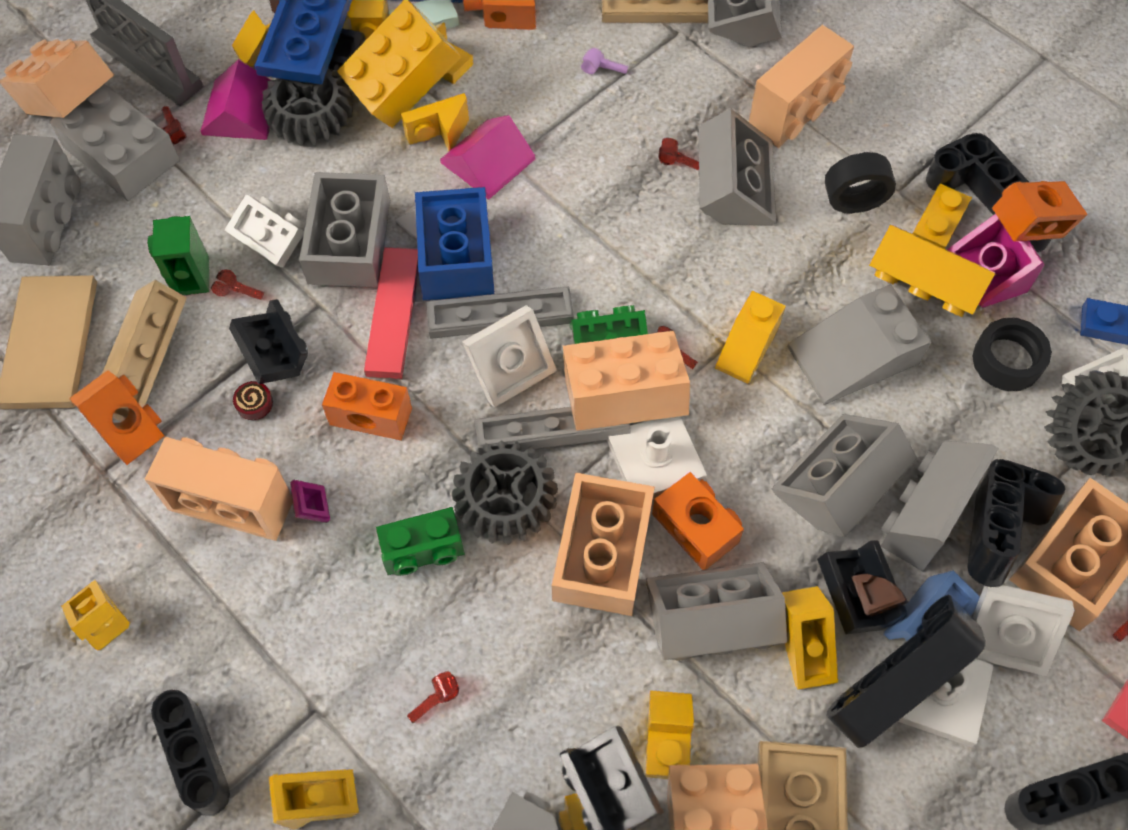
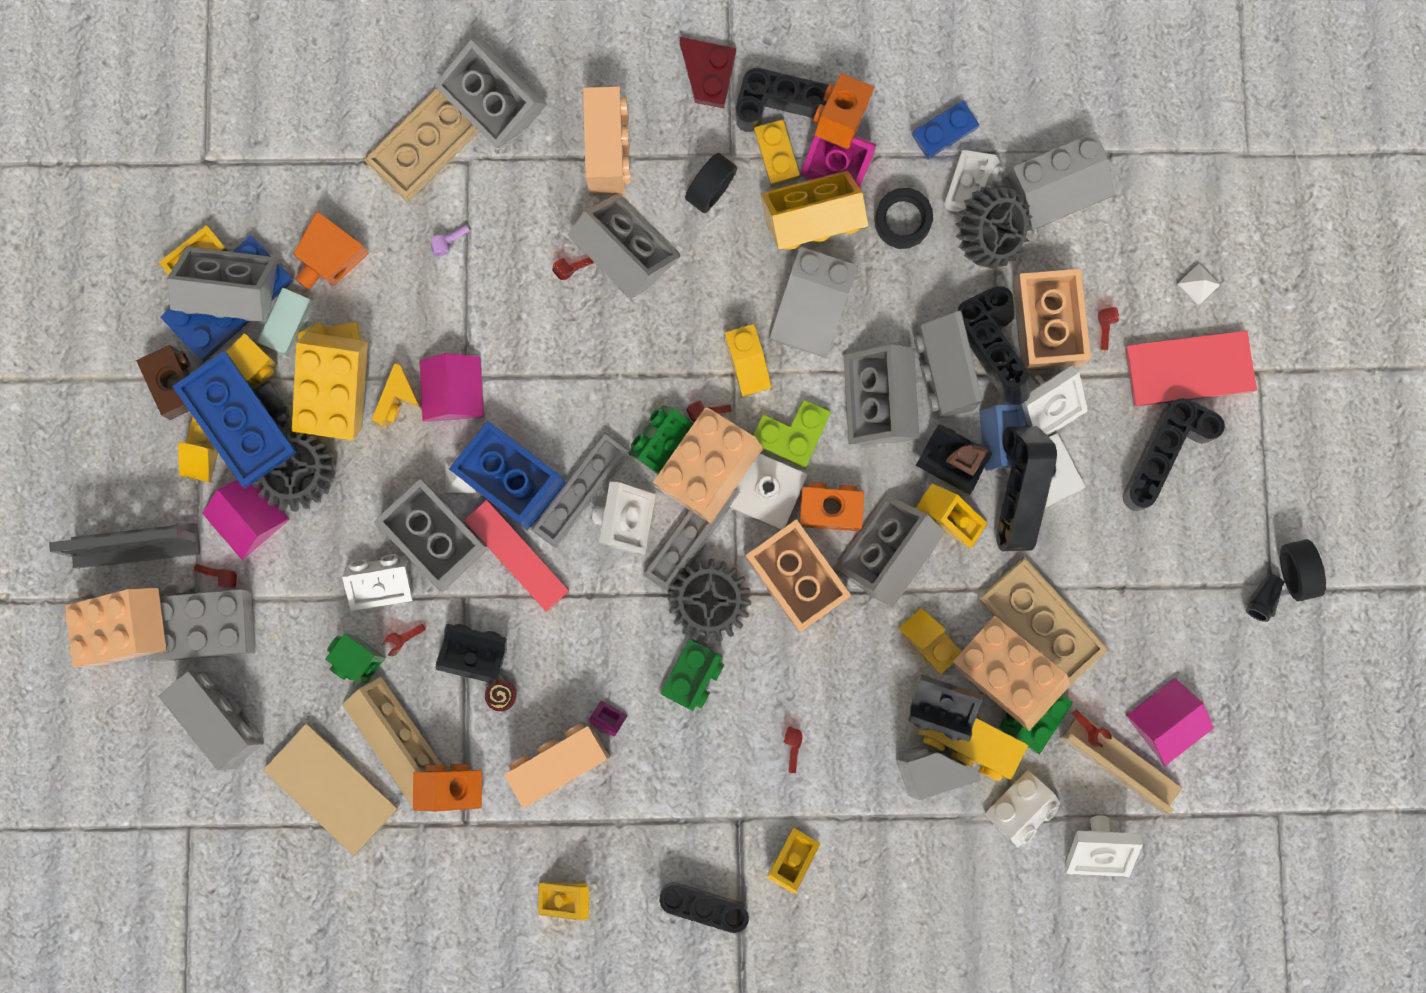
camera: 50 degrees left, 20 degrees up
(367, 406) = (576, 631): orange brick -> none
(729, 443) = (797, 441): none -> lime plate
(941, 120) = (709, 70): none -> dark red wing

